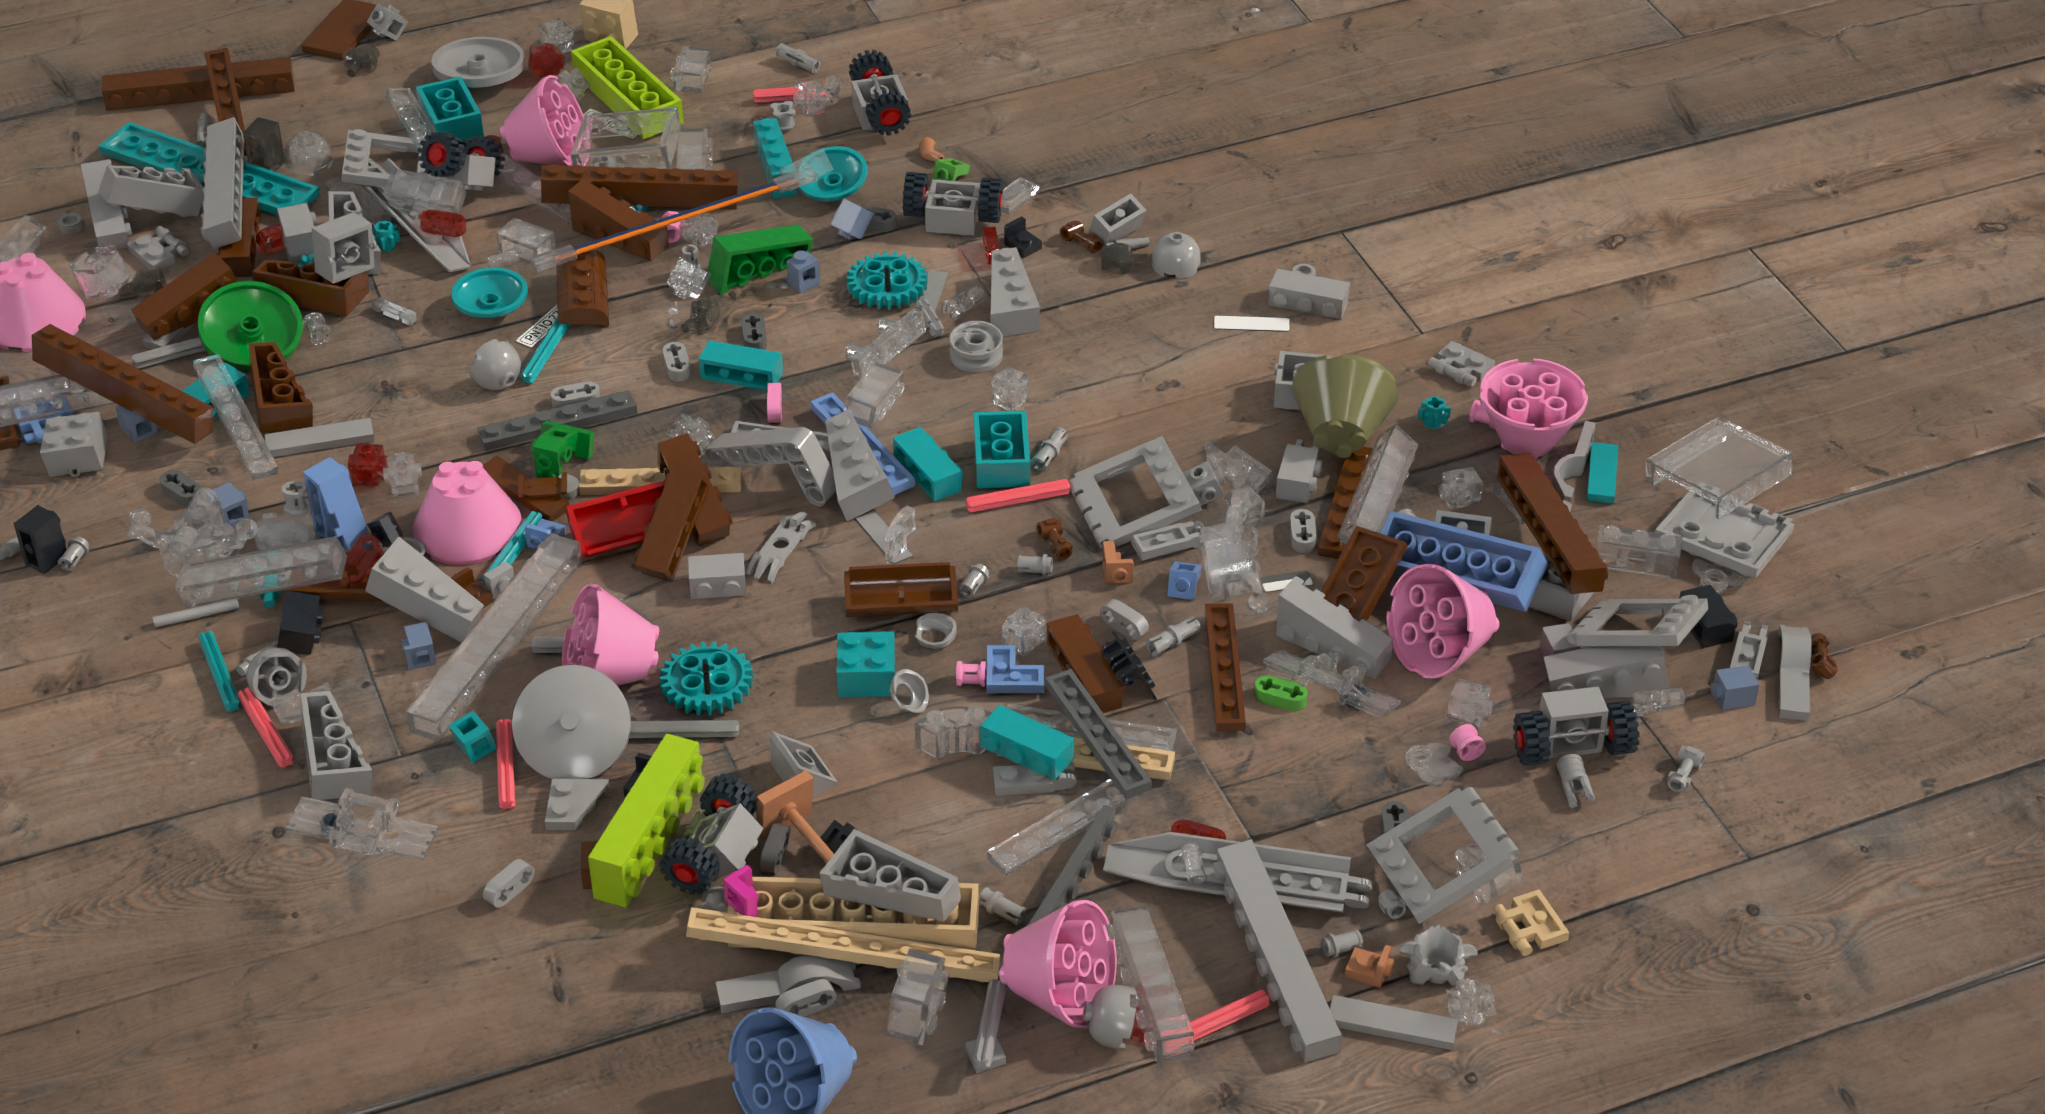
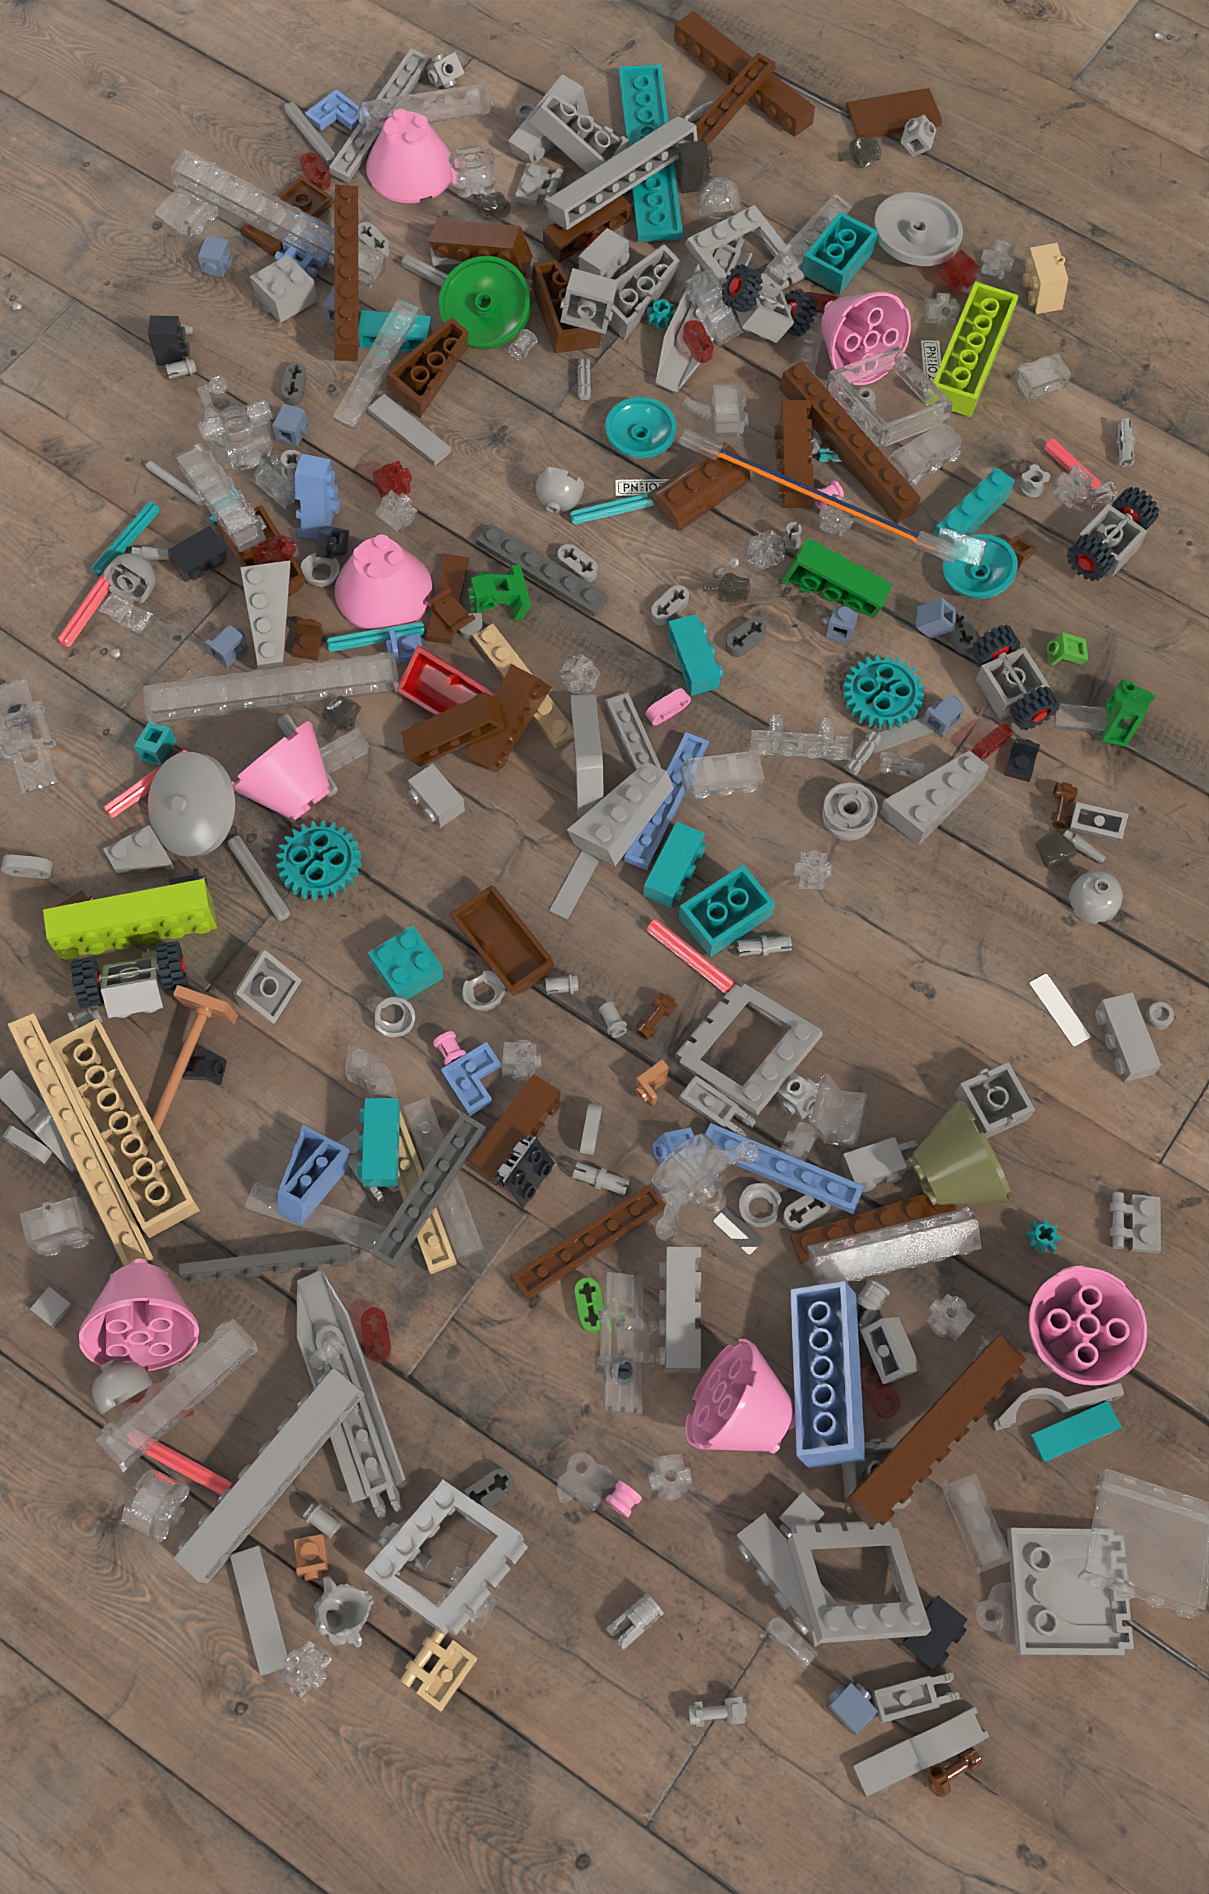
camera: 55 degrees right, 25 degrees up
(330, 749) = (80, 662): light grey wedge -> none
(498, 579) = (330, 650): light grey plate -> none
(564, 598) = (340, 715): none -> clear smoke piece
(740, 892) = (67, 1038): dark pink bracket -> none
(775, 848) = (168, 1025): dark grey beam -> none
(777, 556) = (492, 816): light grey piece -> none
(889, 879) = (139, 1134): light grey wedge -> none
(897, 533) = (565, 895): clear slope -> none
(927, 150) = (1088, 611): nougat arm -> none
(941, 258) = (944, 714): none -> sand blue brick
(989, 1025) = (62, 1297): light grey axle -> none
(997, 904) = (207, 1227): light grey pin -> none
(1014, 801) = (310, 1175): none -> medium blue wedge
(1029, 162) = (1128, 703): none -> green tile
(1246, 1038) = (155, 1505): none -> clear brick
(1273, 546) = (764, 1191): none -> light grey piece
(1275, 511) = (793, 1172): none -> medium blue plate
(1363, 571) = (756, 1296): reddish brown tile -> none
(1575, 724) = (694, 1585): brick -> none

